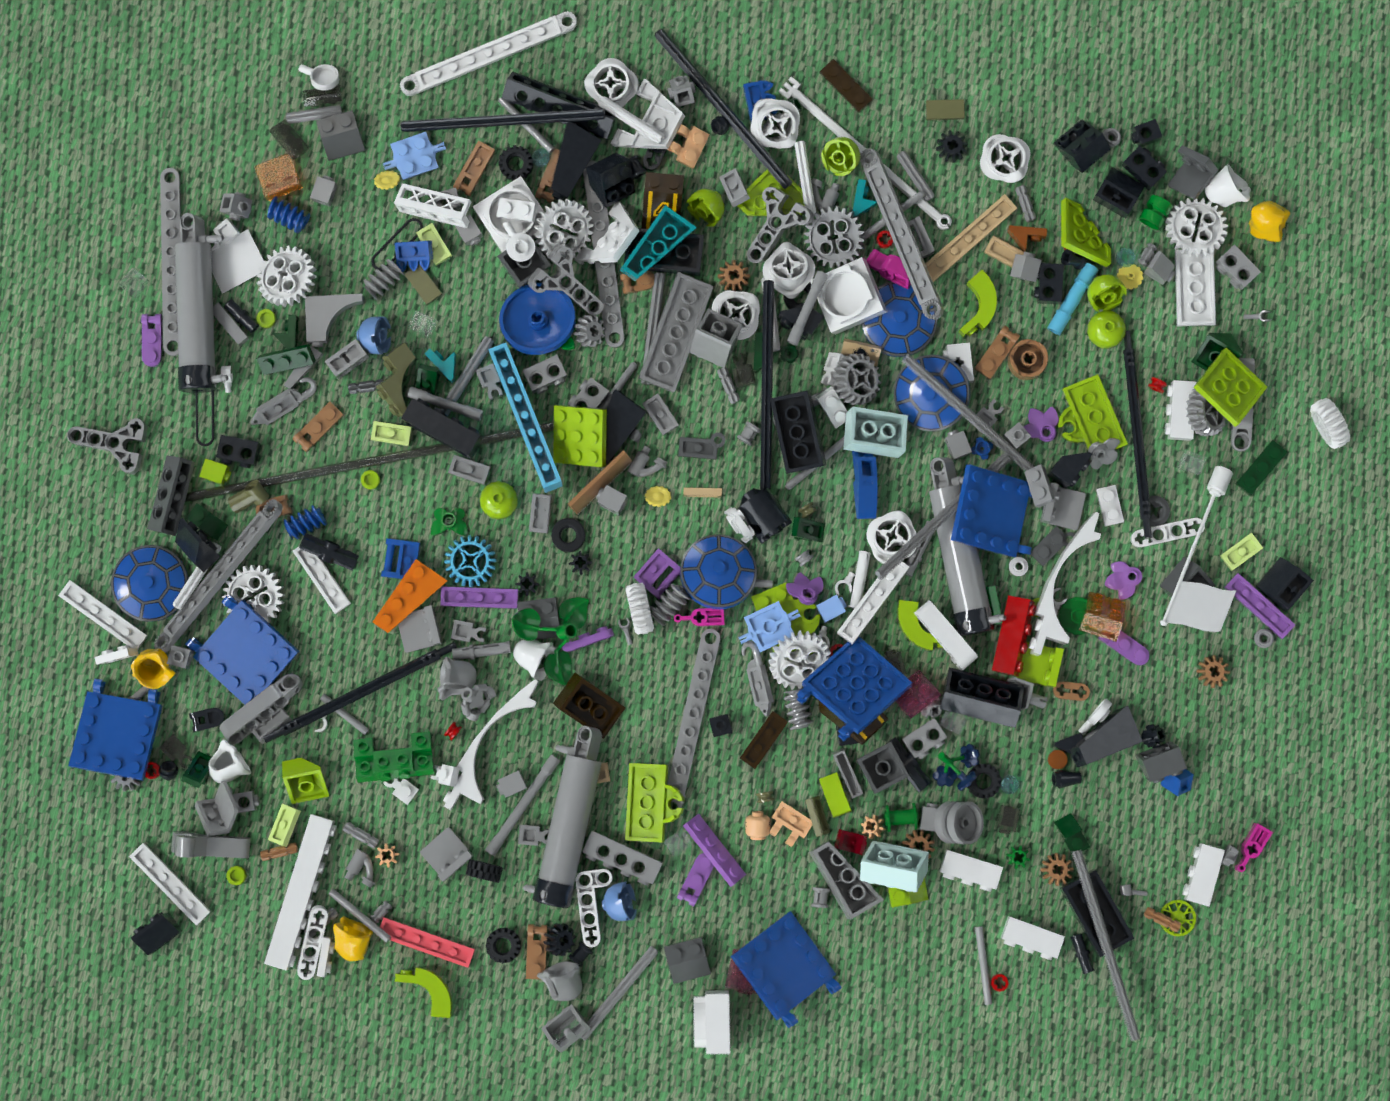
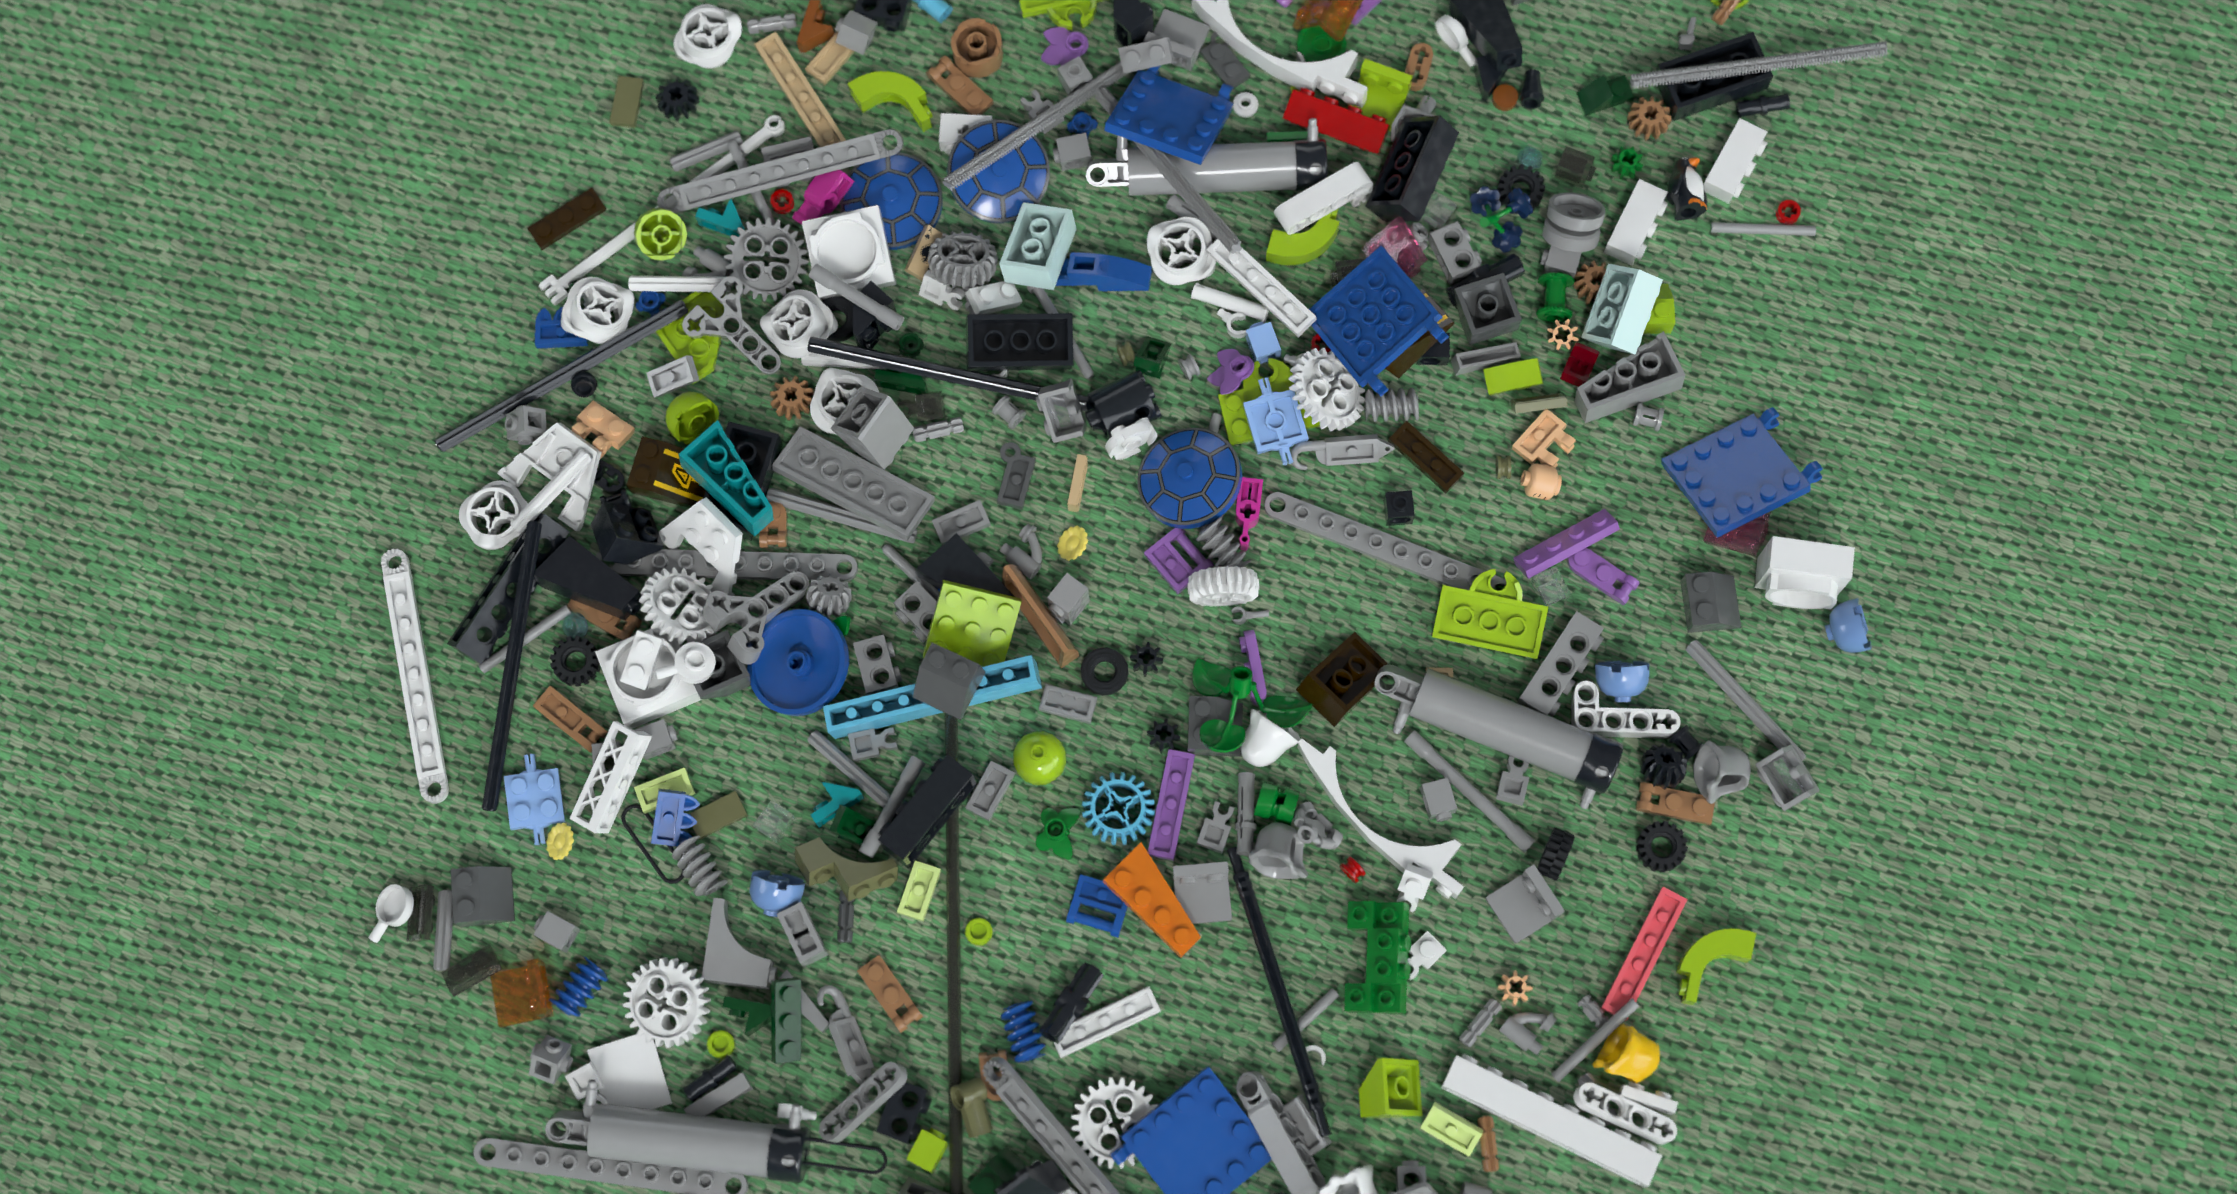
camera: 80 degrees left, 10 degrees down
(241, 420) = (861, 1099): none -> light grey beam
(491, 664) = (1267, 807): none -> green wheel
(532, 425) = (947, 681): none -> dark grey slope
(683, 1060) = (1848, 627): none -> medium blue cylinder
(752, 471) = (1061, 411): none -> light grey window
(787, 163) = (645, 297): none -> blue plate
(1002, 904) = (1686, 190): none -> black animal

